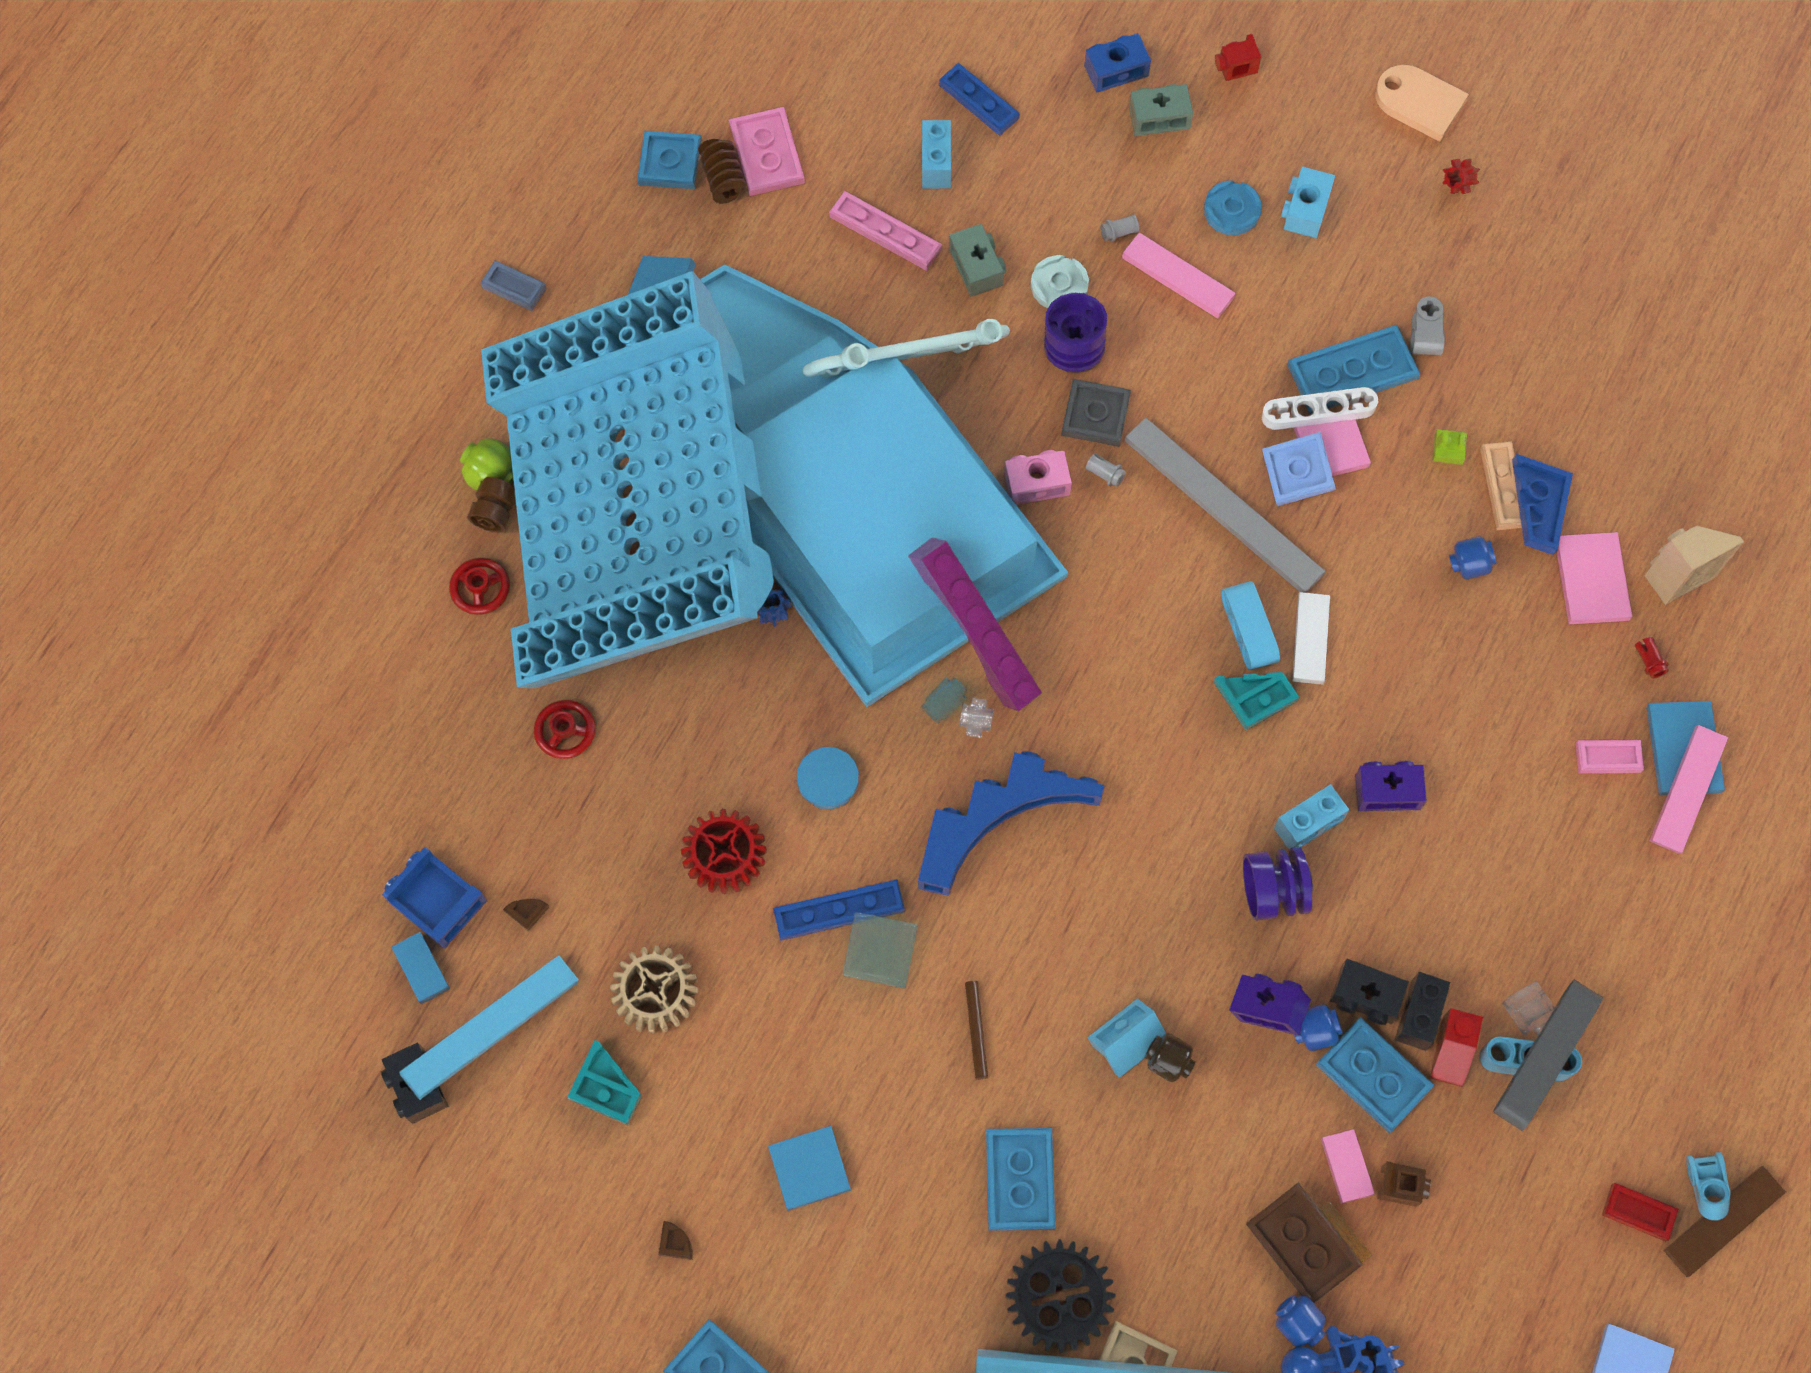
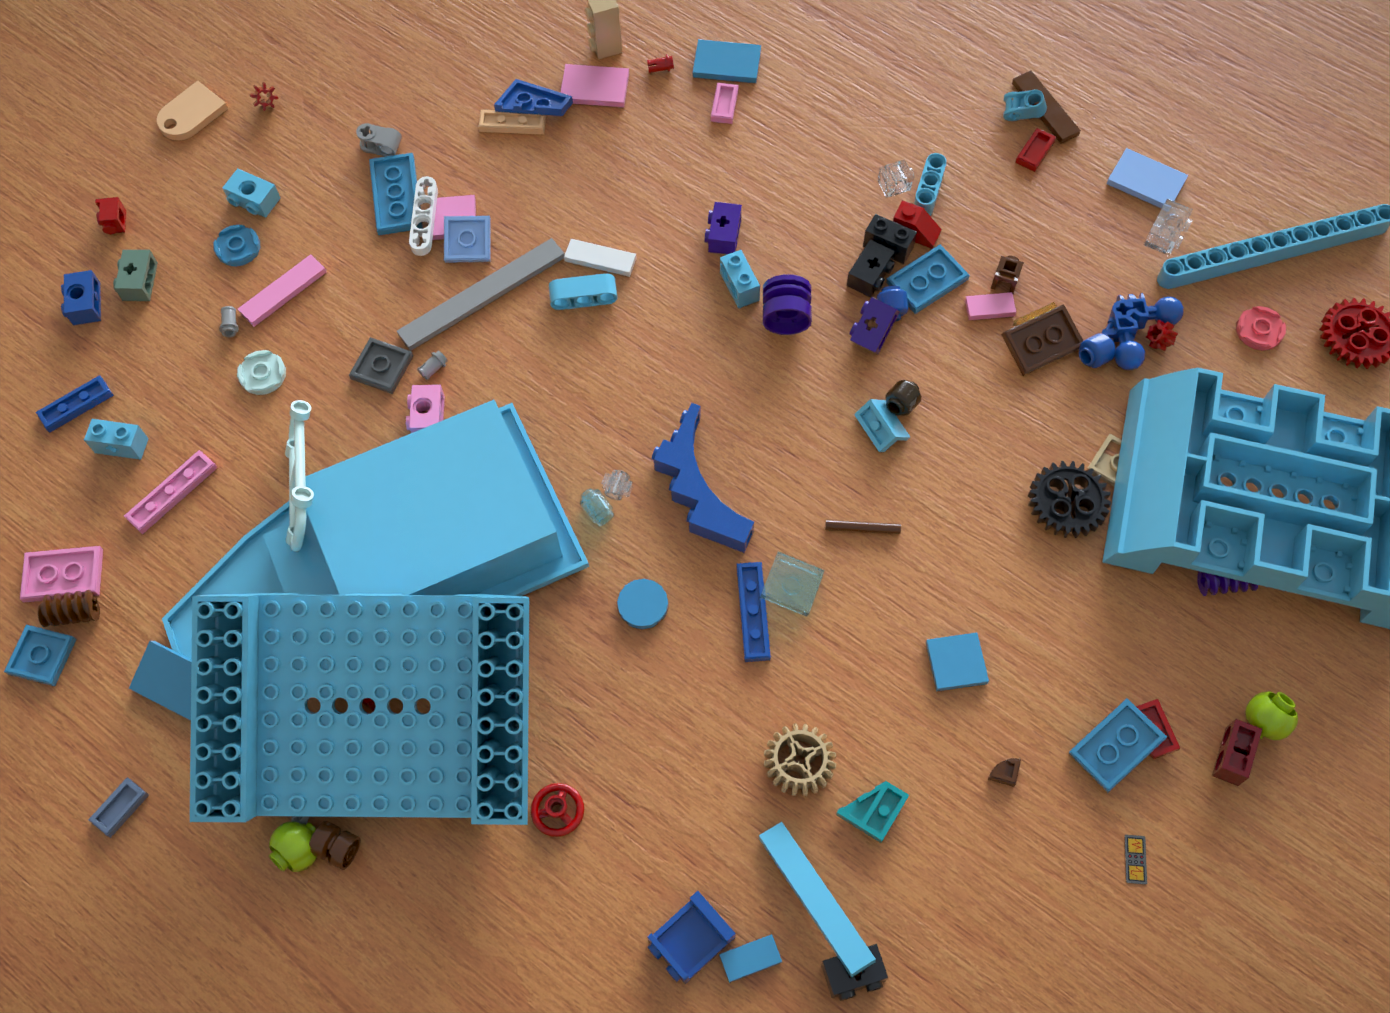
camera: 80 degrees left, 5 degrees down
(470, 574) = (399, 862): red piece -> none
(526, 911) = (714, 860): reddish brown tile -> none
(731, 839) = (705, 705): red gear -> none
(957, 592) = (511, 462): magenta arch -> none
(977, 260) = (223, 425): sand green brick -> none
(1020, 1179) = (979, 514): dark azure tile -> none
(1075, 332) = (312, 361): dark purple wheel -> none
(1256, 696) = (638, 298): teal wing -> none
(1449, 446) = (474, 146): lime tile -> none
(1473, 557) = (564, 147): blue head -> none
(1548, 1055) = (935, 167): dark grey beam -> none
(1688, 789) = (758, 61): bright pink tile -> none

